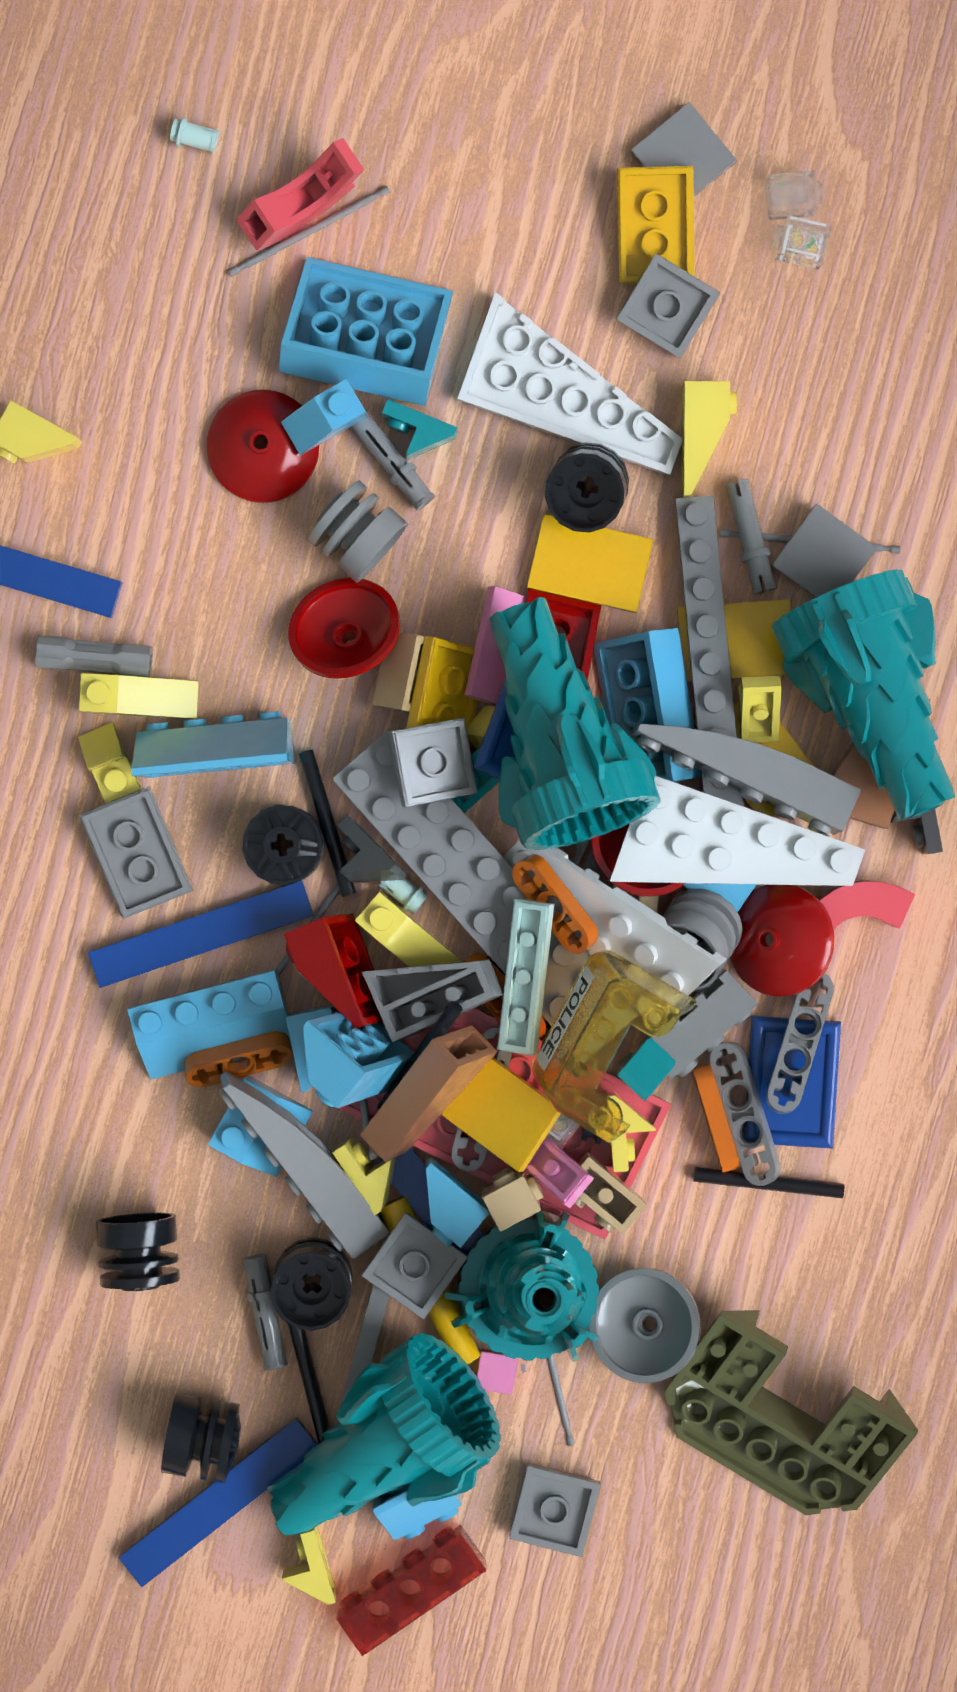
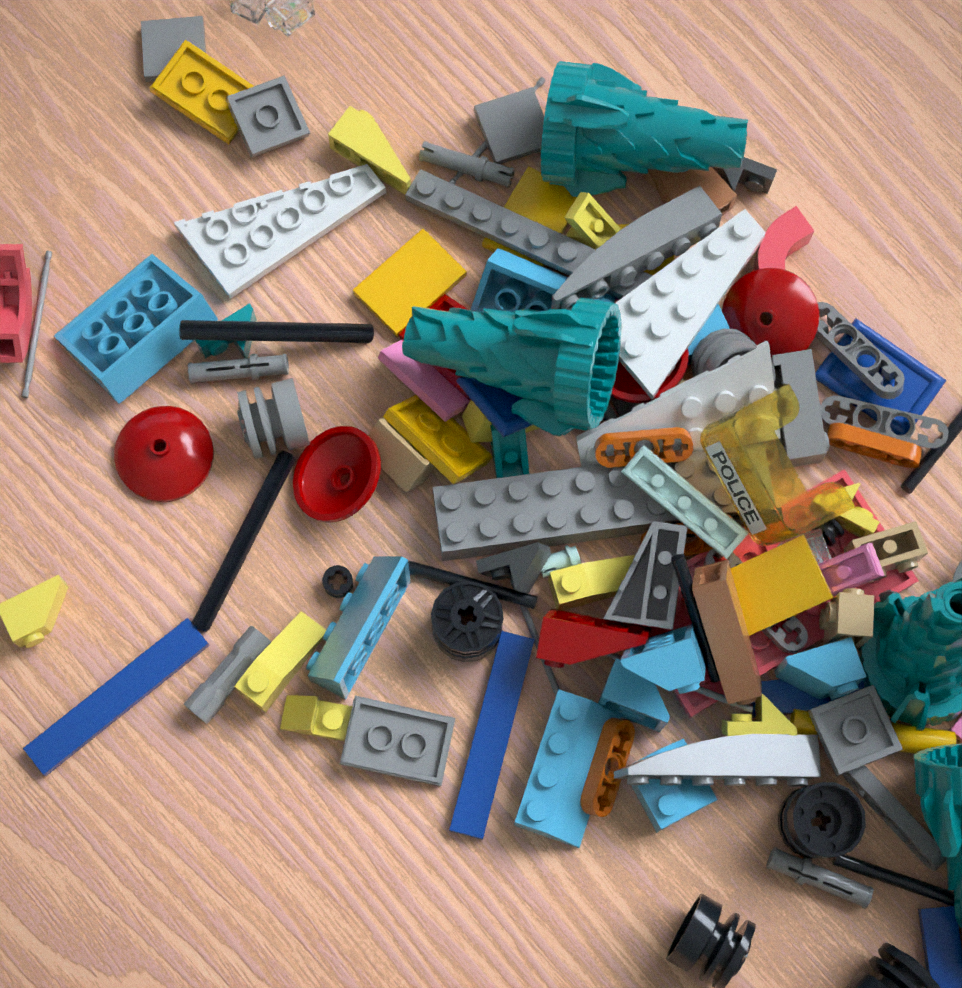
camera: 60 degrees left, 15 degrees down
(228, 582) = (243, 541): none -> black axle
(244, 707) = (330, 574): none -> black bush
(324, 417) = (174, 386): medium azure slope -> none
(432, 762) = (479, 467): light grey tile -> none
(445, 473) = (275, 331): none -> black axle
(580, 508) = (361, 223): black wheel -> none
(645, 1068) = (810, 463): teal slope -> none

